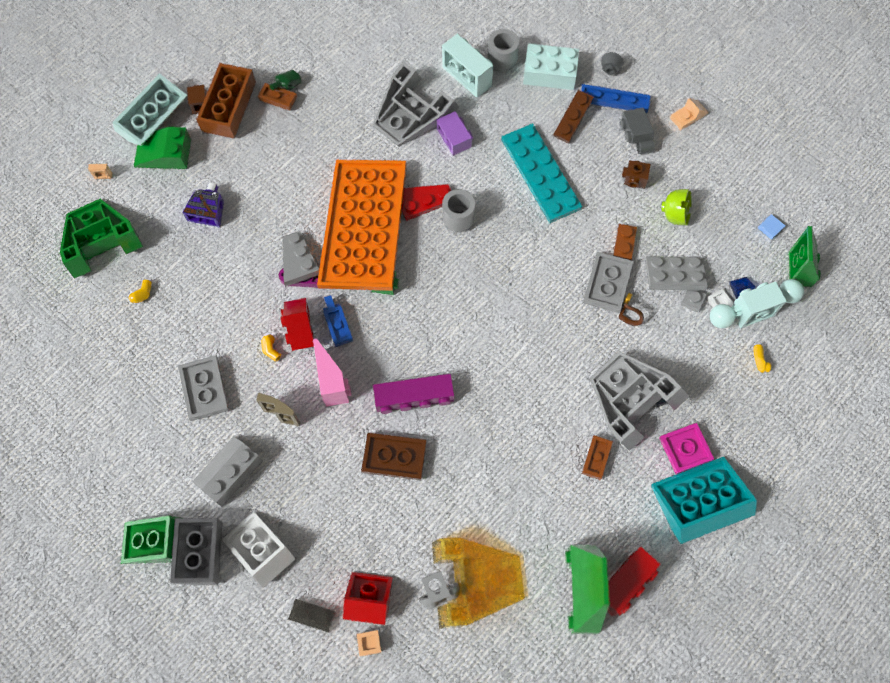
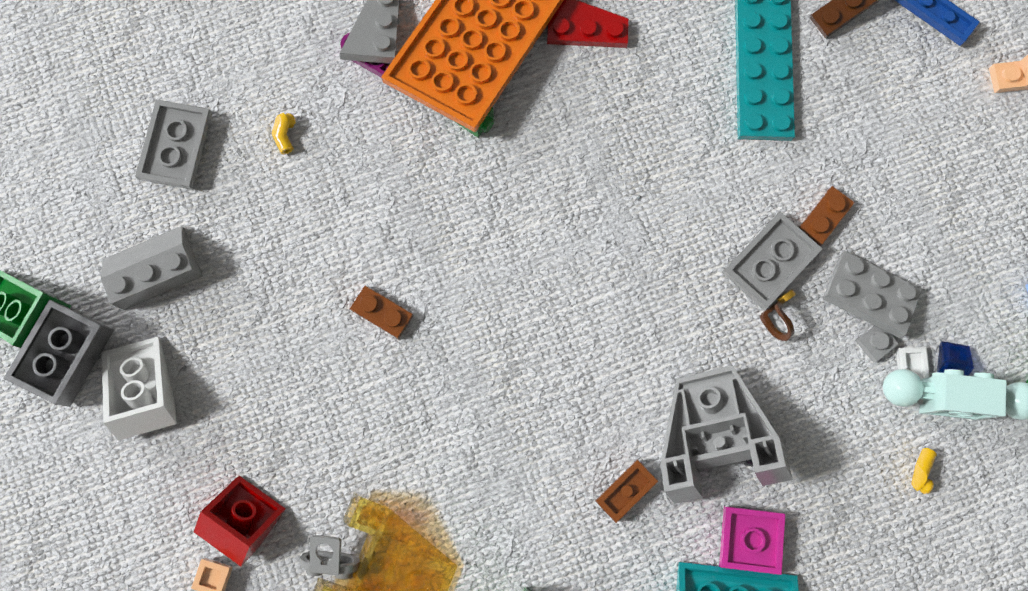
camera: 25 degrees right, 10 degrees up
(277, 407) = (248, 221): dark tan slope -> none
(298, 325) = (329, 118): red brick -> none
(312, 615) = (162, 505): clear smoke plate -> none
(332, 383) = (332, 215): bright pink slope -> none
(336, 322) = (383, 140): blue hinge -> none
(390, 425) = (381, 312): none -> dark orange plate
(394, 456) = (365, 355): reddish brown plate -> none
(413, 393) = (432, 284): magenta brick -> none
(458, 210) = (623, 51): light grey piece -> none
(636, 174) = (895, 127): reddish brown brick -> none
(638, 130) = (933, 64): dark grey hinge -> none
(677, 207) = (927, 202): lime cylinder -> none

